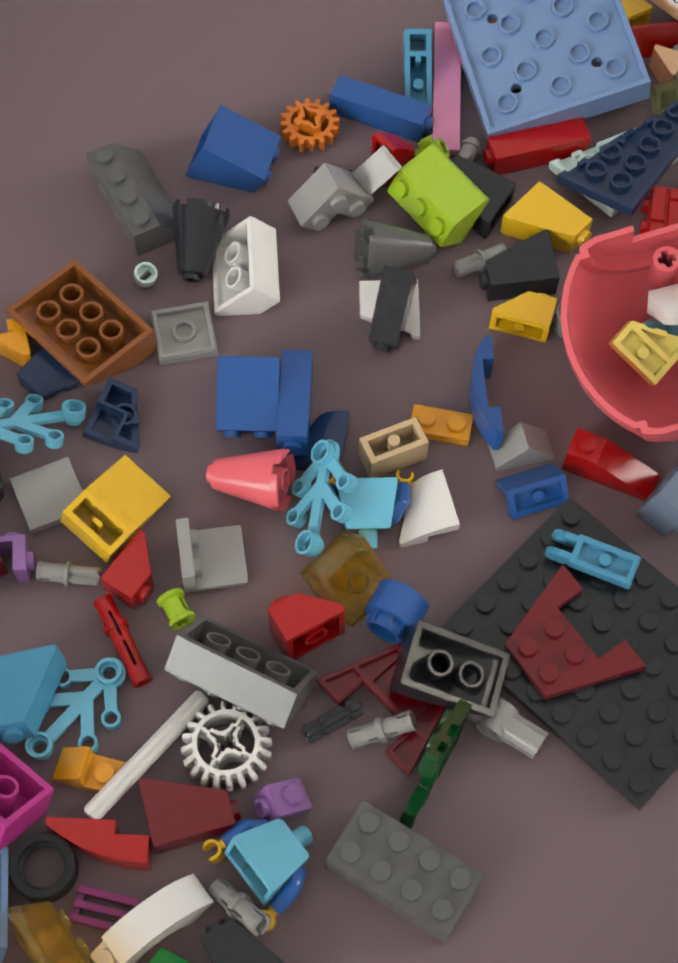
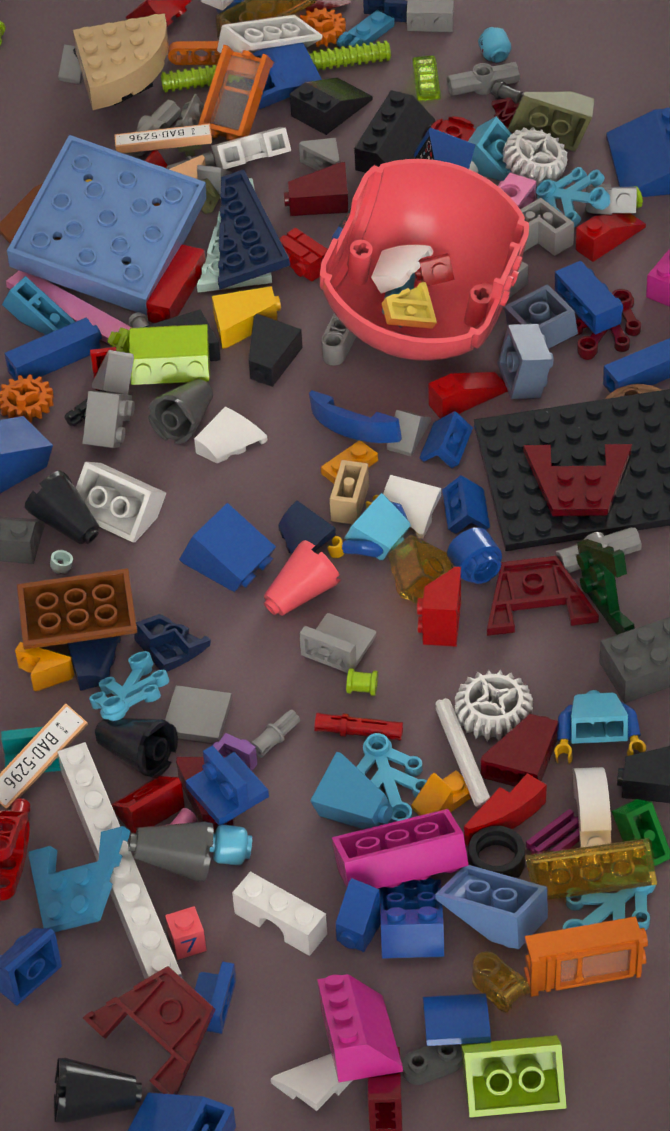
camera: 50 degrees left, 15 degrees down
(114, 508) = (252, 676): yellow slope -> none
(130, 574) = (310, 691): red slope -> none
(184, 333) = (143, 563): light grey tile -> none
(239, 906) = (618, 751): light grey pin -> none
(241, 671) = (450, 659): brick -> none
(281, 800) = (557, 696): medium lavender bracket -> none
(295, 401) = (277, 528): blue brick -> none
(325, 460) = (350, 545): medium azure plant -> none
(333, 720) = (522, 640): black axle -> none
(382, 729) = (555, 611): light grey pin -> none
(392, 308) = (239, 426): black slope -> none
(445, 666) = (543, 545): black slope -> none
(464, 560) = (465, 505): none -> blue panel
(476, 260) = (238, 368): light grey axle -> none
(525, 316) = (311, 367): yellow slope -> none
(595, 558) = (533, 426): dark azure hinge -> none

